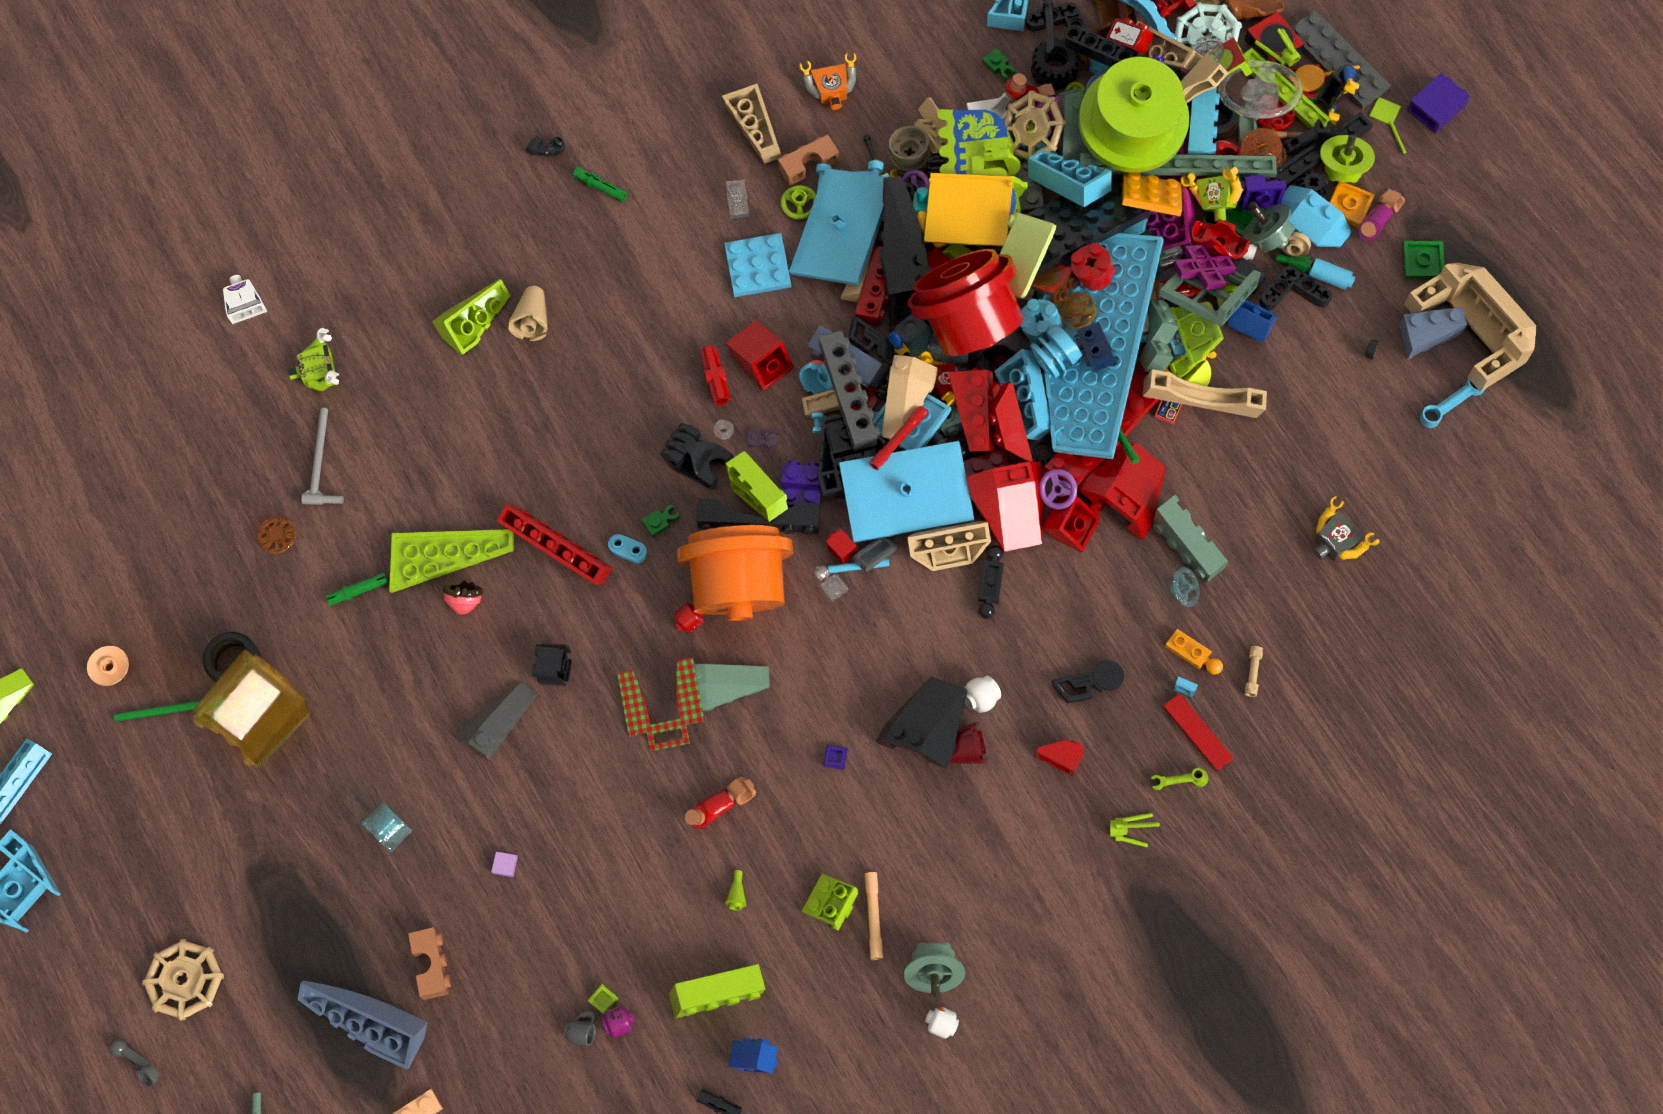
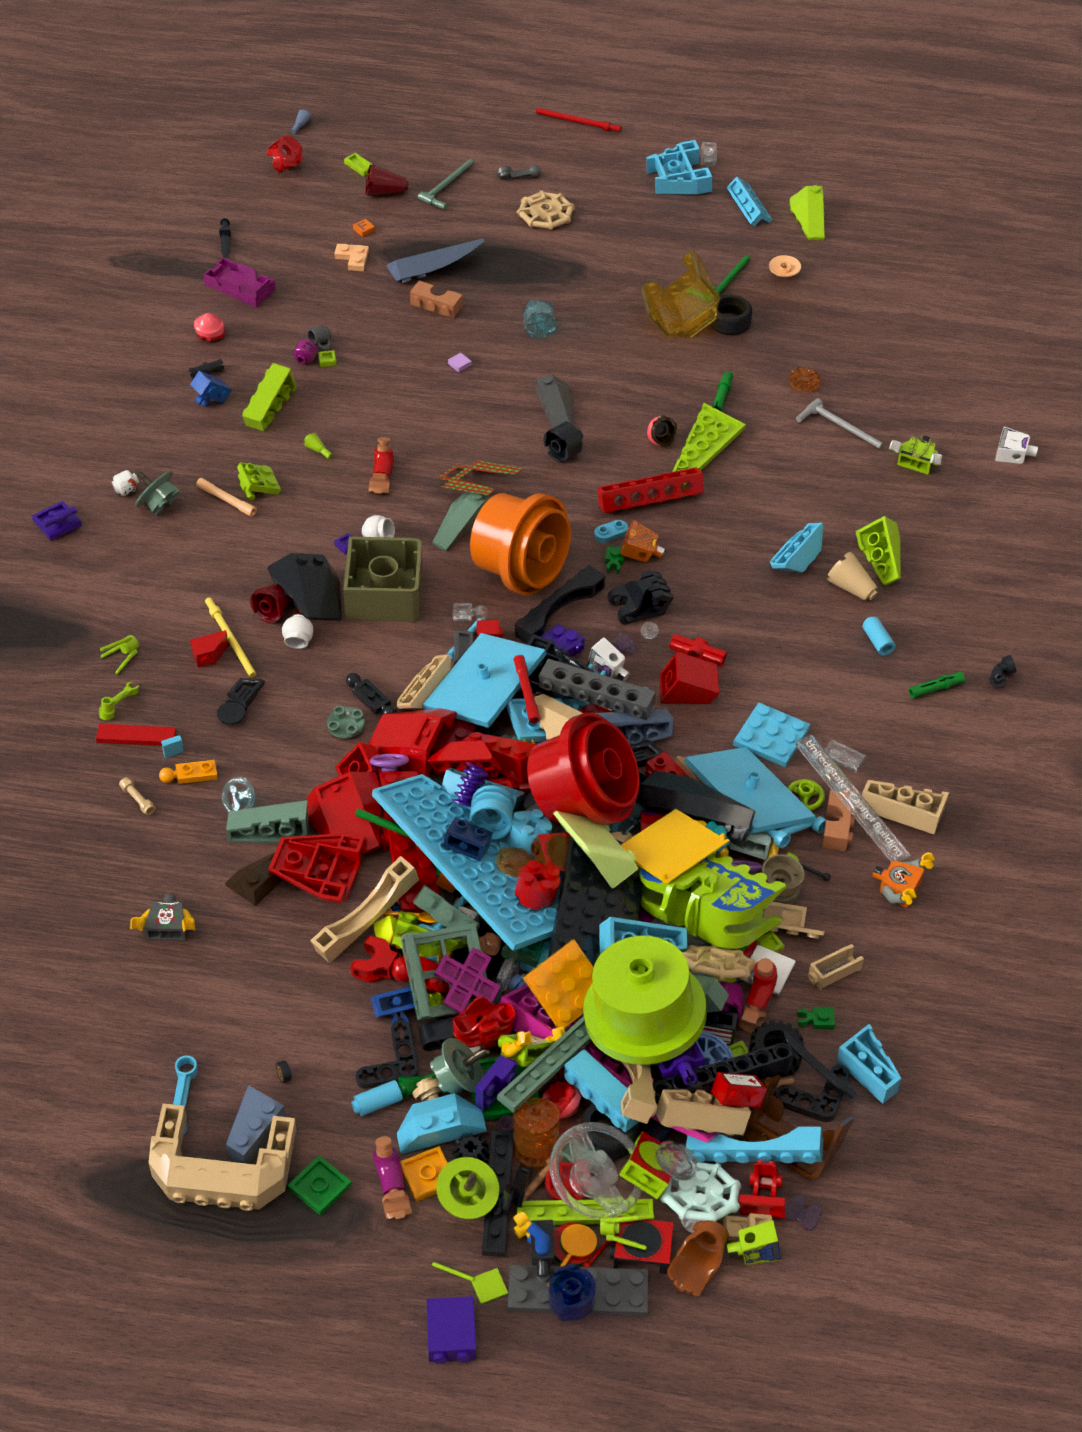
camera: 125 degrees right, 20 degrees down
(533, 378) = (799, 549): none -> medium azure wedge
(581, 256) = (878, 636): none -> medium azure brick
(630, 505) = (640, 543): none -> orange torso
(755, 487) = (578, 606): lime wedge -> none
(788, 153) = (852, 799): none -> clear tile
(795, 422) = (608, 658): none -> white torso
(804, 733) = (378, 527): none -> white piece
(869, 641) = (383, 579): none -> olive piece
(948, 76) = (834, 967): none -> tan window
(1015, 791) = (216, 614): none -> light yellow bar
(1034, 579) = (345, 722): none -> sand green dish
(1040, 1042) = (57, 520): none -> dark purple plate
(1043, 388) = (471, 784): none -> dark purple piece
(1196, 465) = (320, 863): none -> red wedge
(1226, 353) = (387, 964): none -> red piece
(1232, 510) = (254, 880): none -> dark brown wedge
(1355, 43) = (575, 1304): none -> clear blue brick

